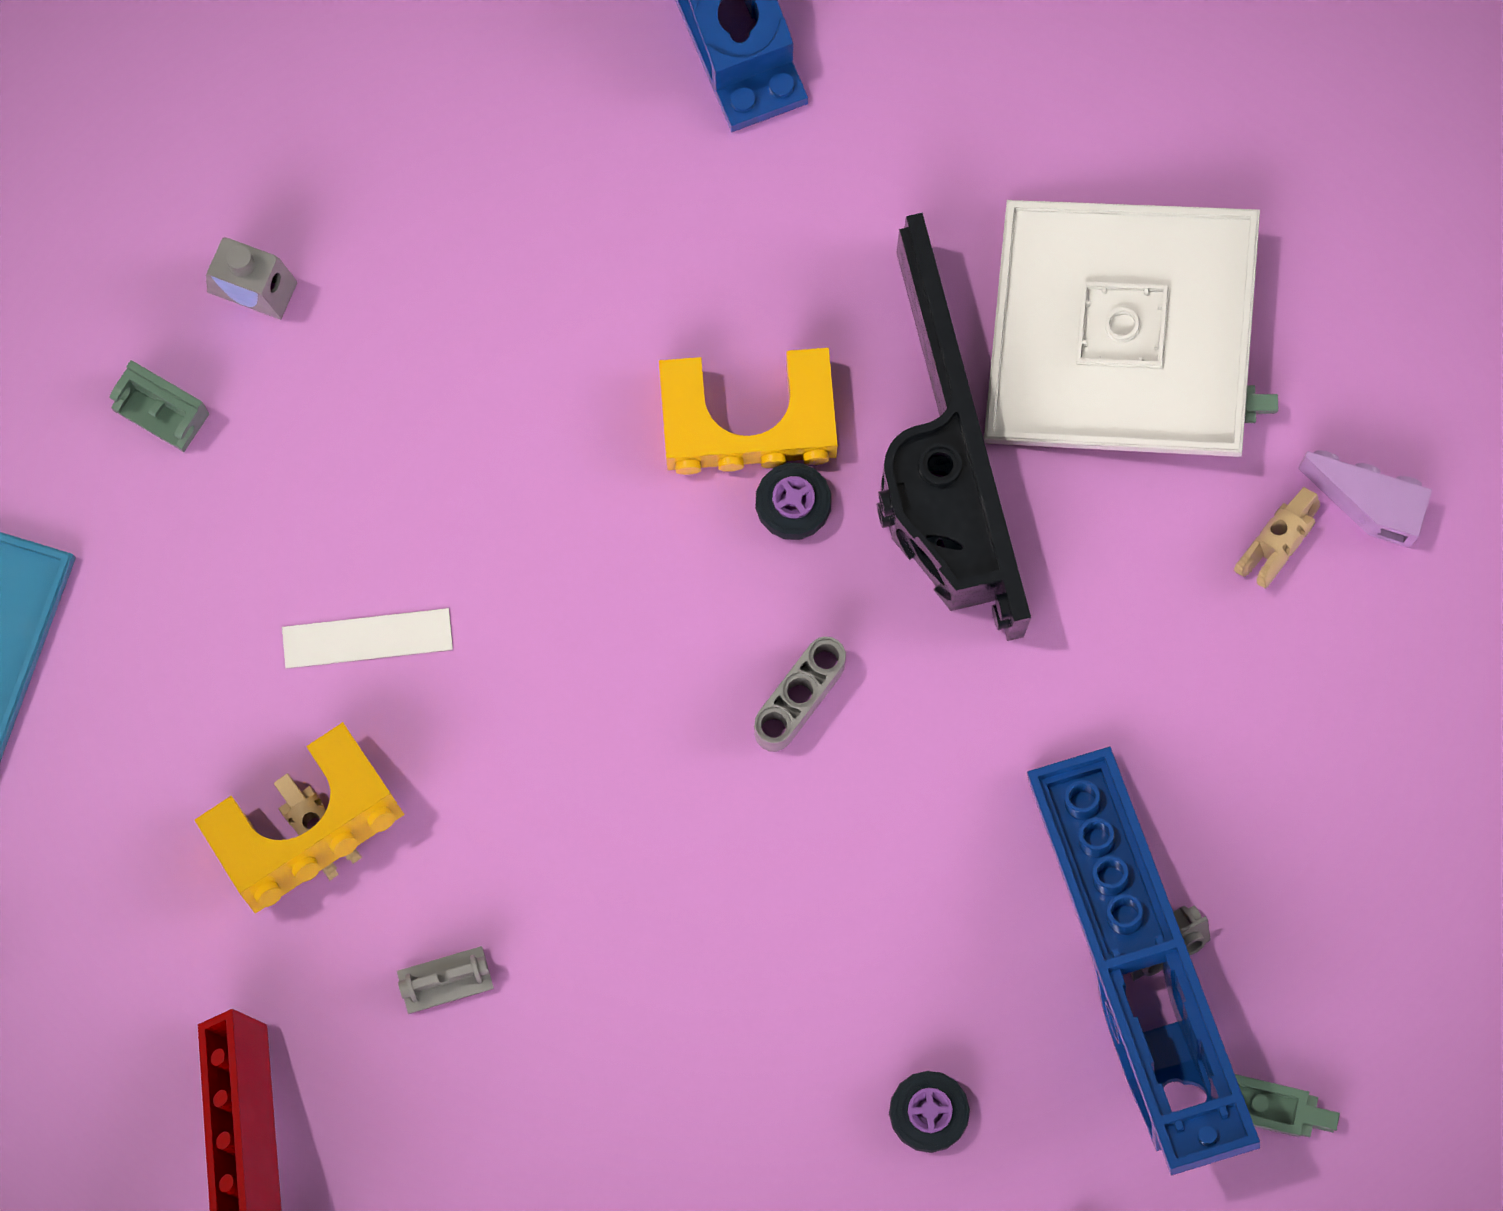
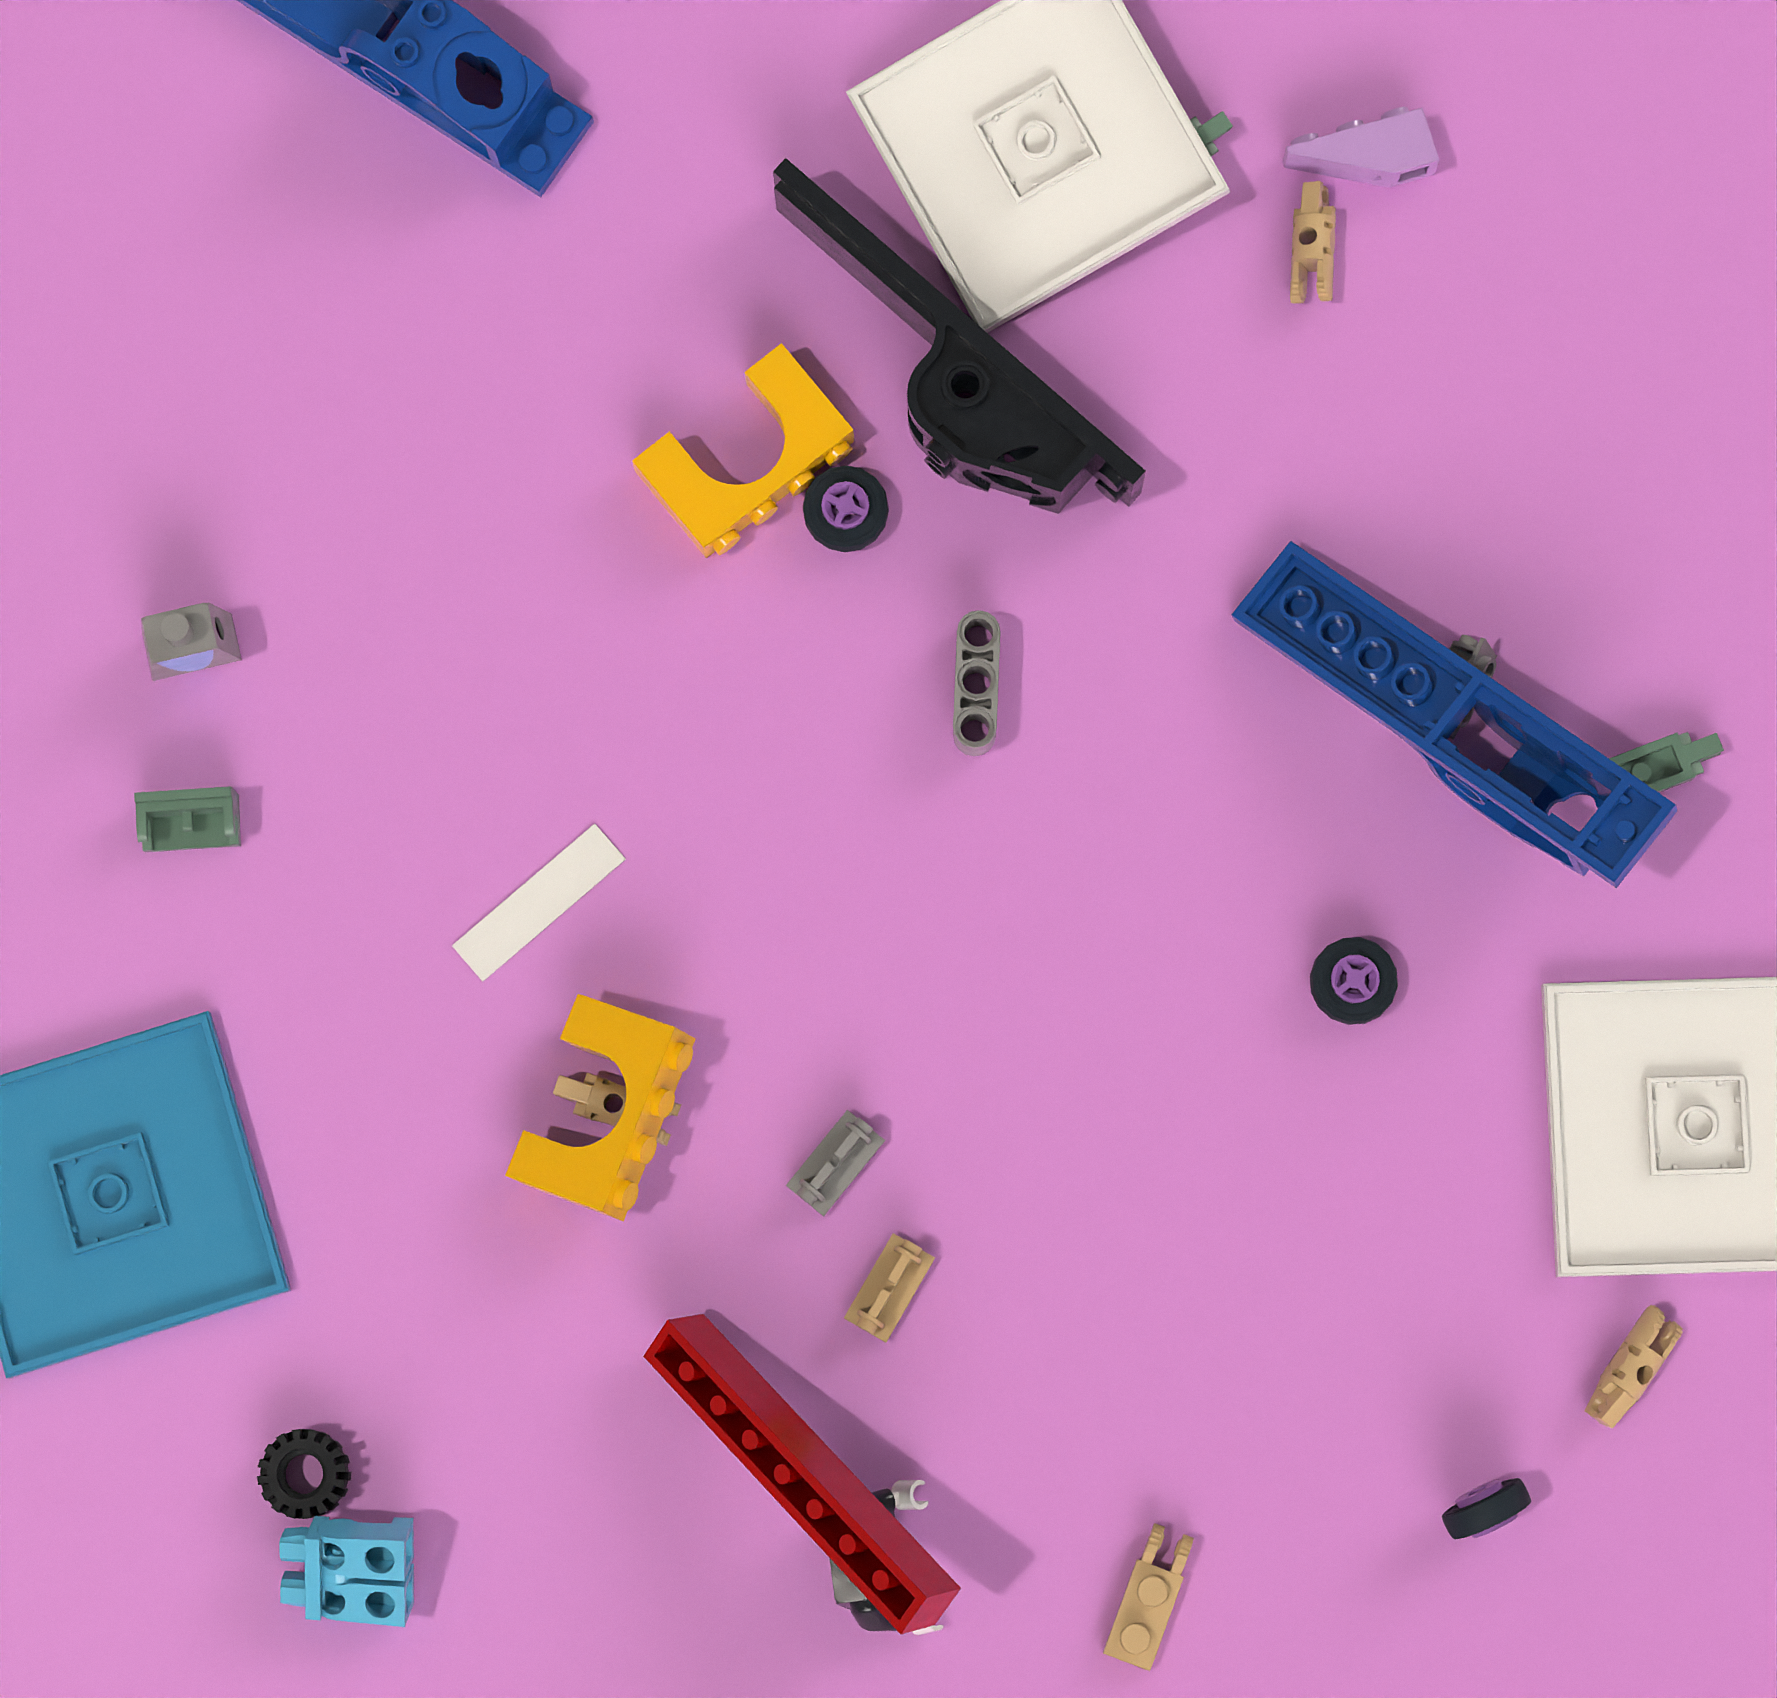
camera: 30 degrees left, 5 degrees up
(418, 1102) = (889, 1287): none -> tan hinge

